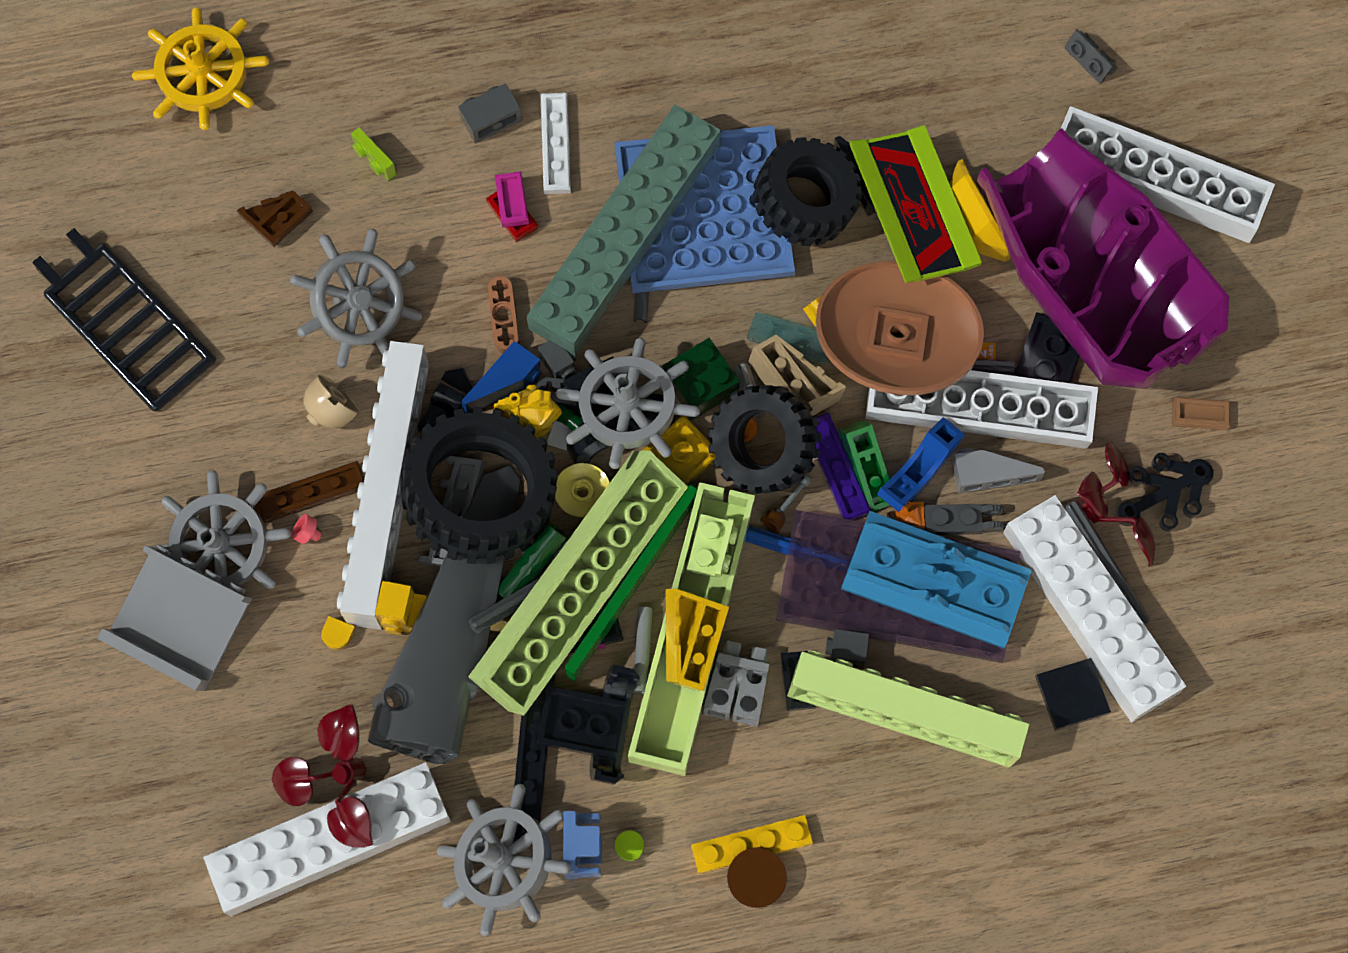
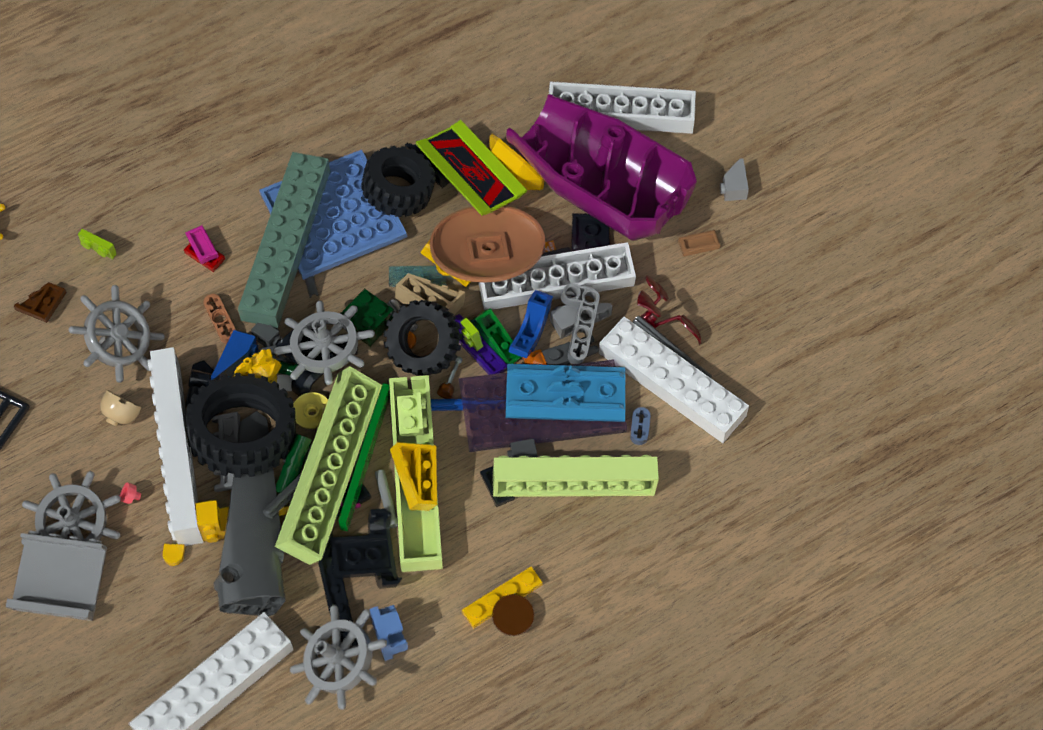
camera: 20 degrees left, 10 degrees down
(292, 780) = (174, 654): dark red plant -> none
(310, 492) = (125, 469): reddish brown tile -> none
(490, 112) = (168, 196): dark grey brick -> none
(555, 143) = (219, 203): white tile -> none
(629, 845) = (420, 624): lime tile -> none
(689, 450) = (376, 366): yellow tile -> none
(742, 675) = (456, 492): light grey hips -> none
(831, 454) = (471, 334): none -> lime plate
(988, 488) = (581, 325): none -> light grey beam
(1030, 663) = (636, 425): none -> sand blue beam
(1072, 694) = (678, 437): black tile -> none
(1086, 53) = (552, 51): dark grey hinge -> none
(1169, 489) = (695, 293): black plant -> none
(1284, 339) = (735, 183): none -> light grey slope

